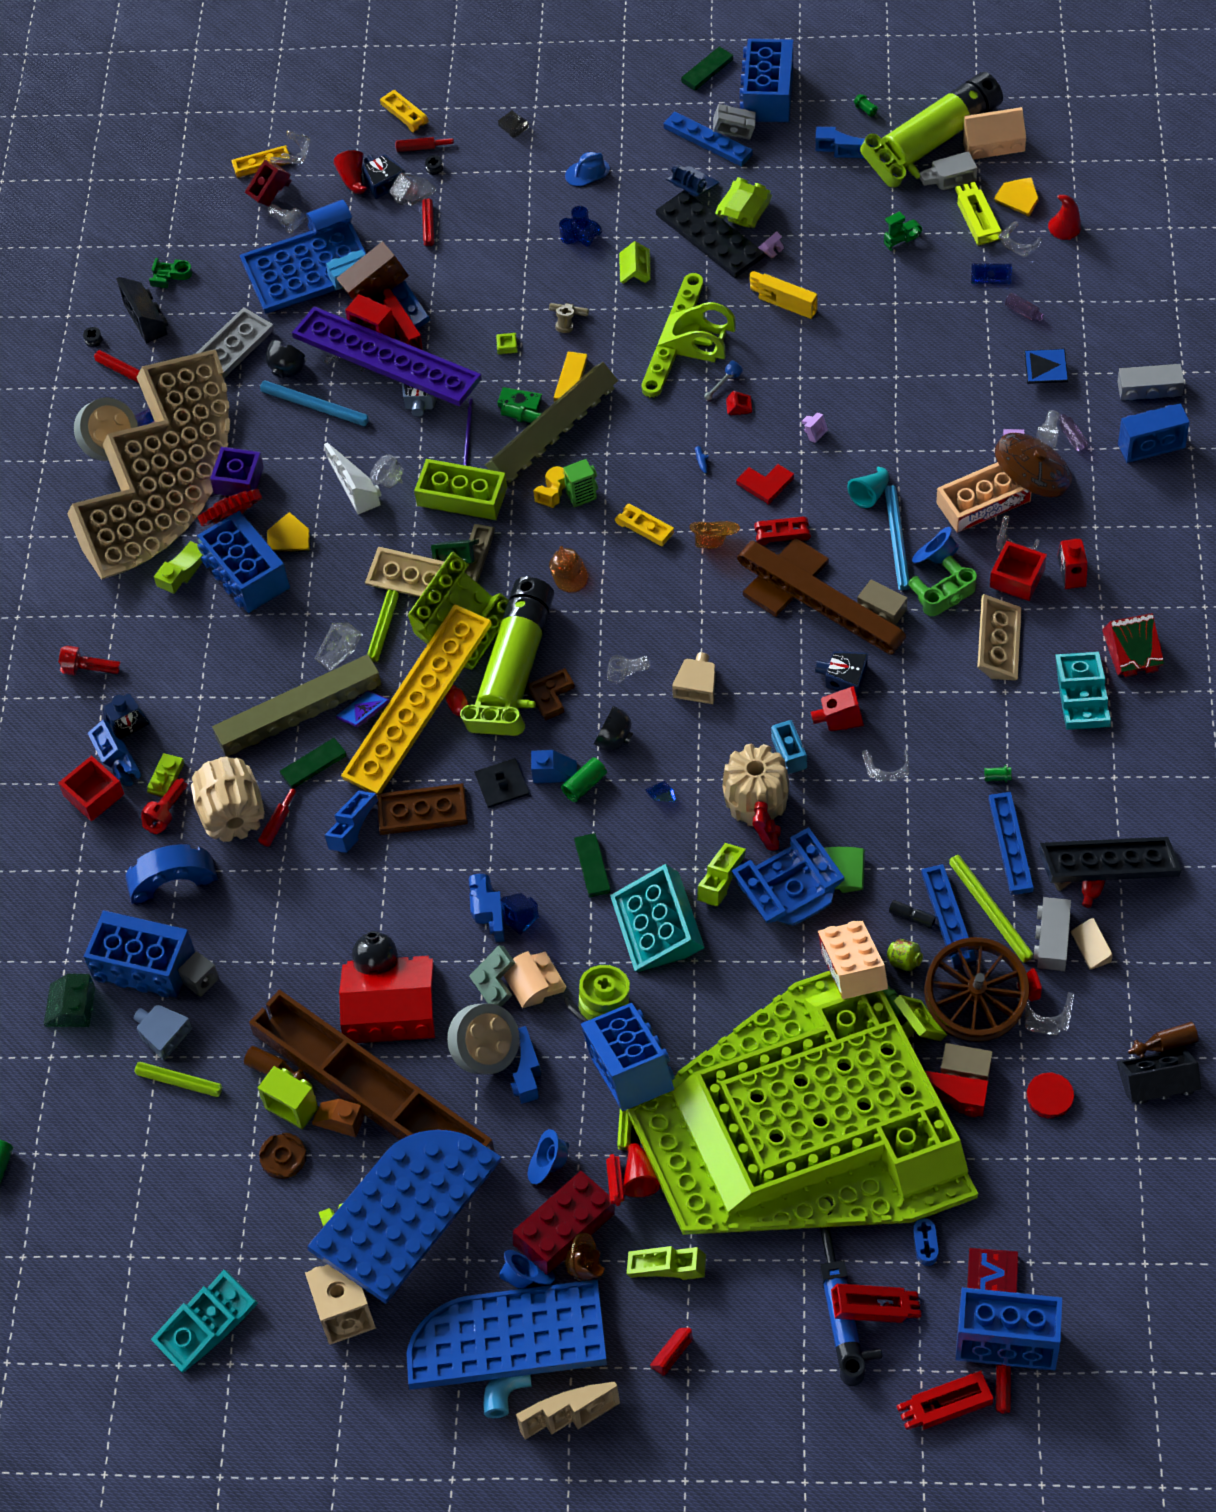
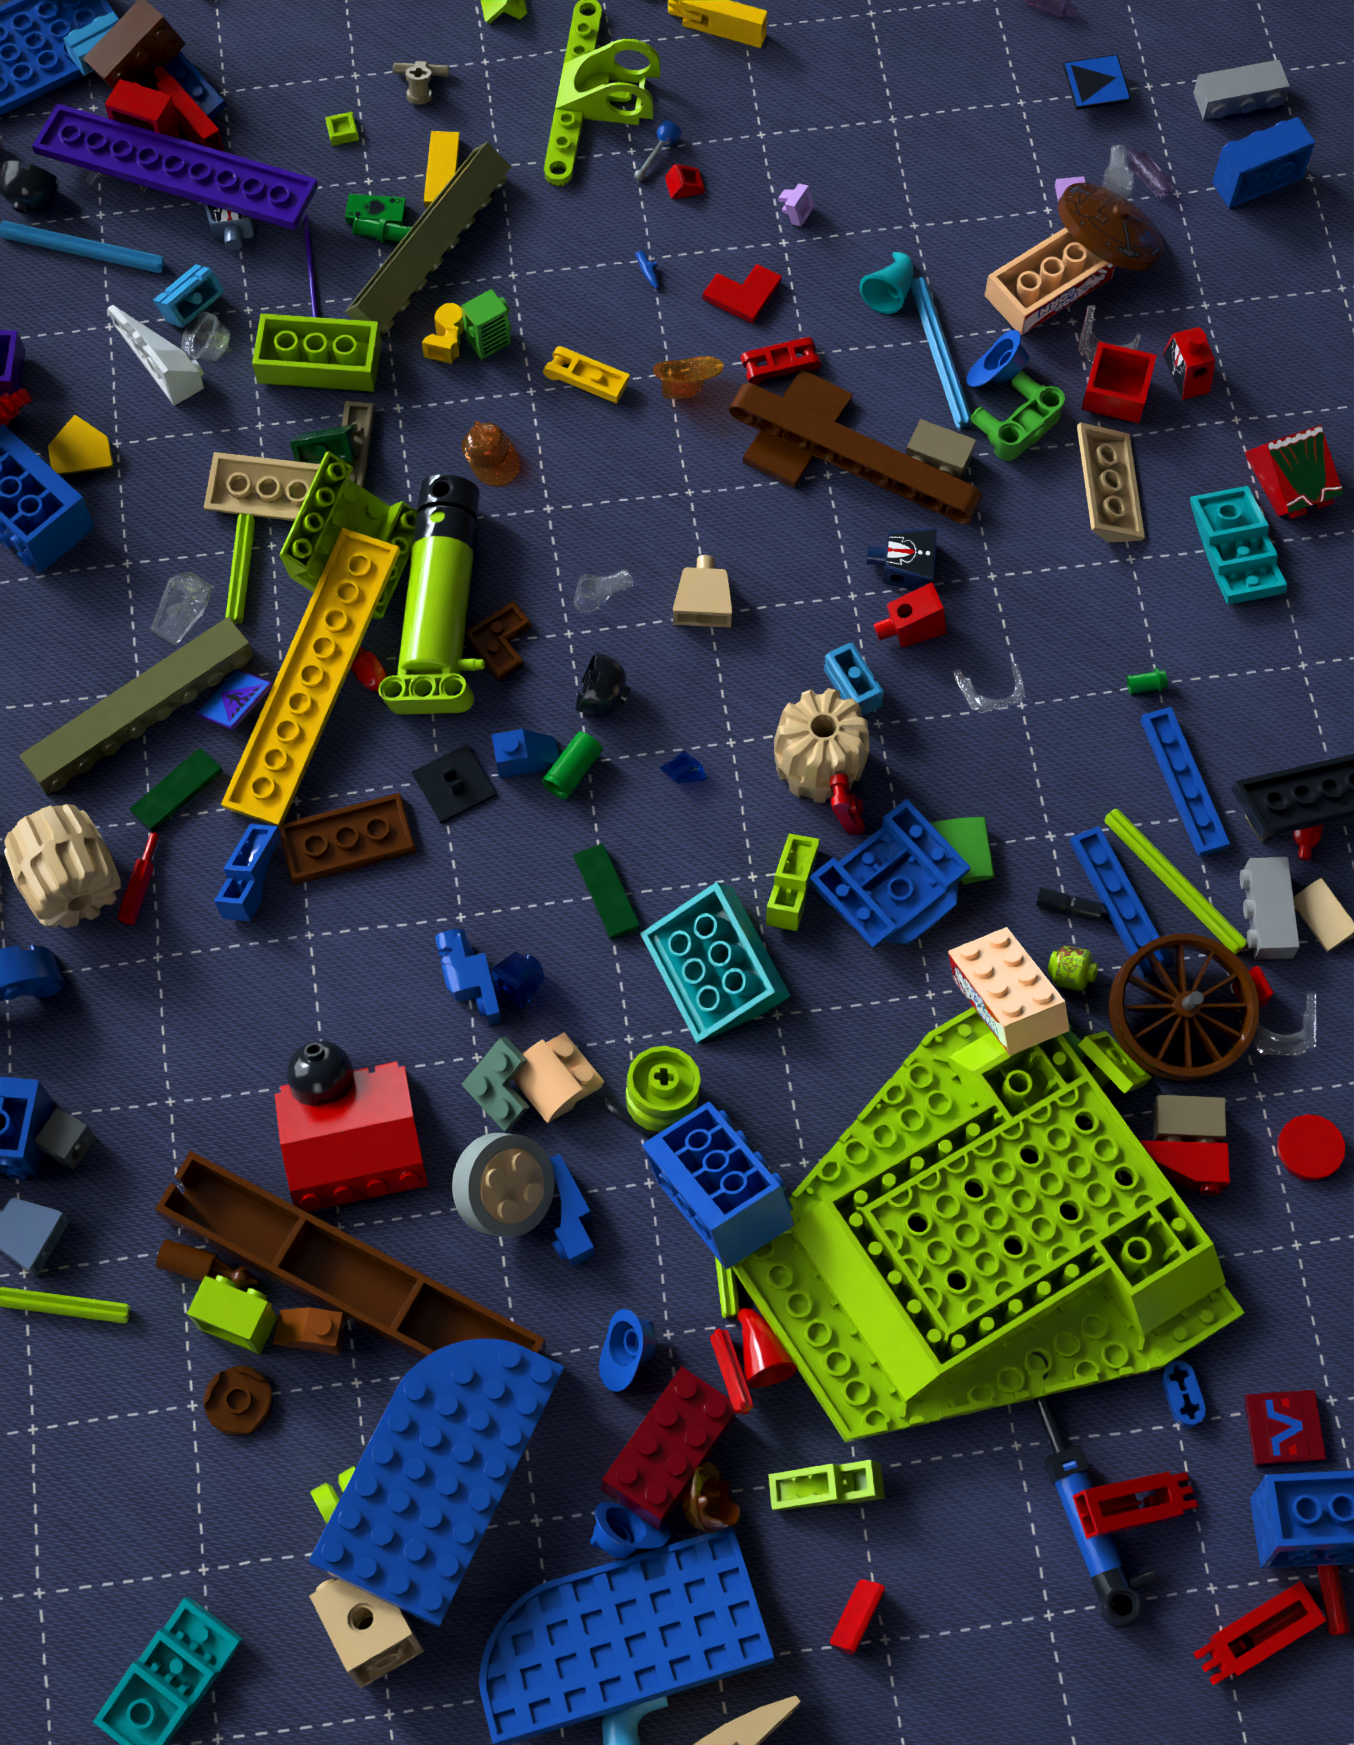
camera: 15 degrees left, 10 degrees up
(380, 442) = (189, 295): none -> dark azure brick

